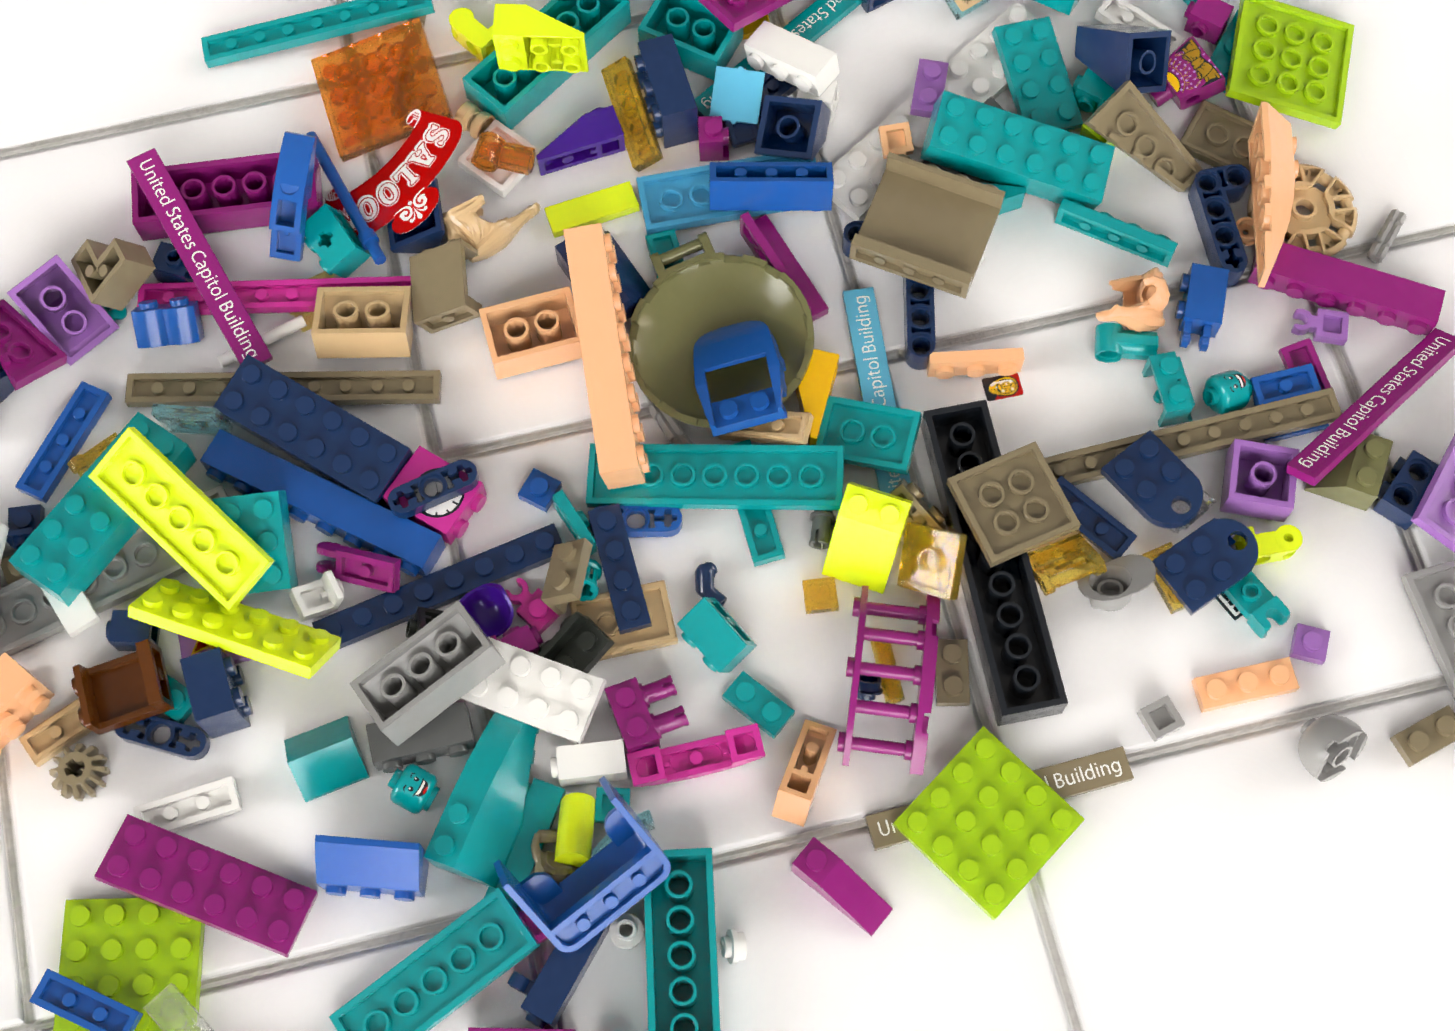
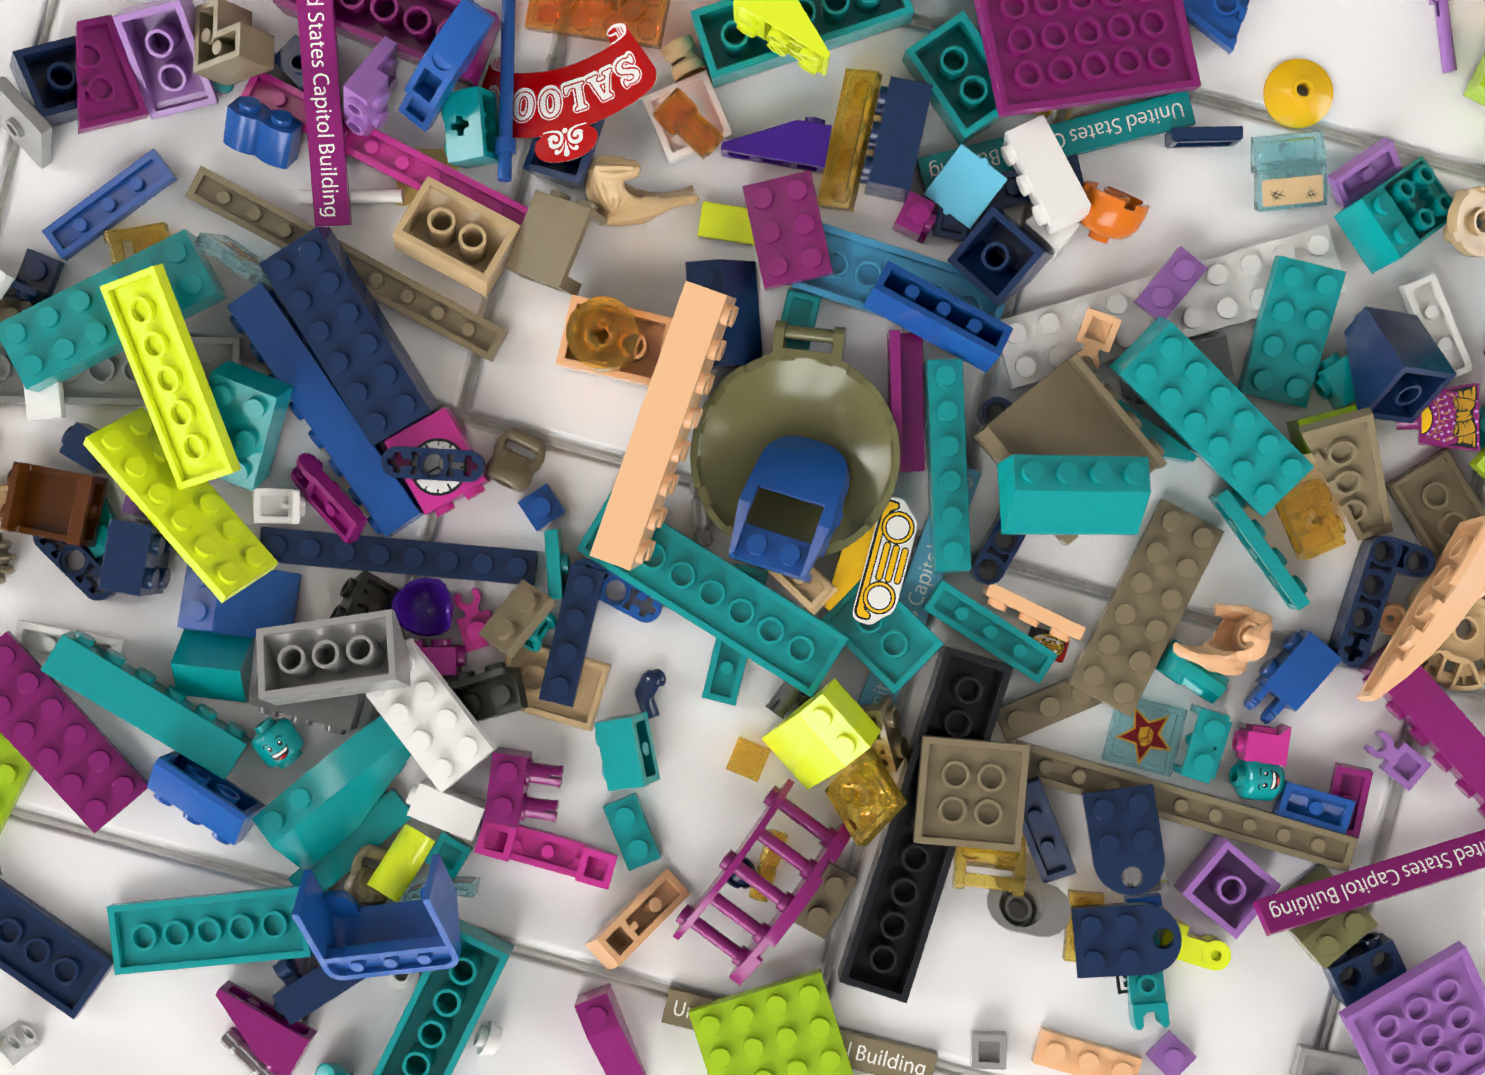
camera: 30 degrees right, 20 degrees up
(241, 246) = (369, 89): none -> medium lavender plate
(279, 812) = (147, 703): none -> teal brick
(323, 699) = (260, 605): none -> blue slope
(499, 472) = (512, 468): none -> dark tan piece
(520, 315) = (592, 318): none -> clear yellow brick
(621, 192) = (787, 230): none -> magenta plate
(839, 380) = (885, 563): none -> sticker
(844, 291) = (947, 466): none -> teal brick
(857, 64) = (1112, 213): none -> orange cylinder
(941, 392) = (989, 631): none -> teal plate
(948, 242) = (1073, 494): none -> teal slope
(1037, 420) = (1042, 709): none -> dark tan plate
(1059, 317) = (1145, 607): none -> dark tan plate
(1120, 408) = (1146, 738): none -> clear light blue tile
(1137, 194) = (1326, 529): none -> clear yellow brick
(1212, 363) = (1262, 743): none -> dark pink window

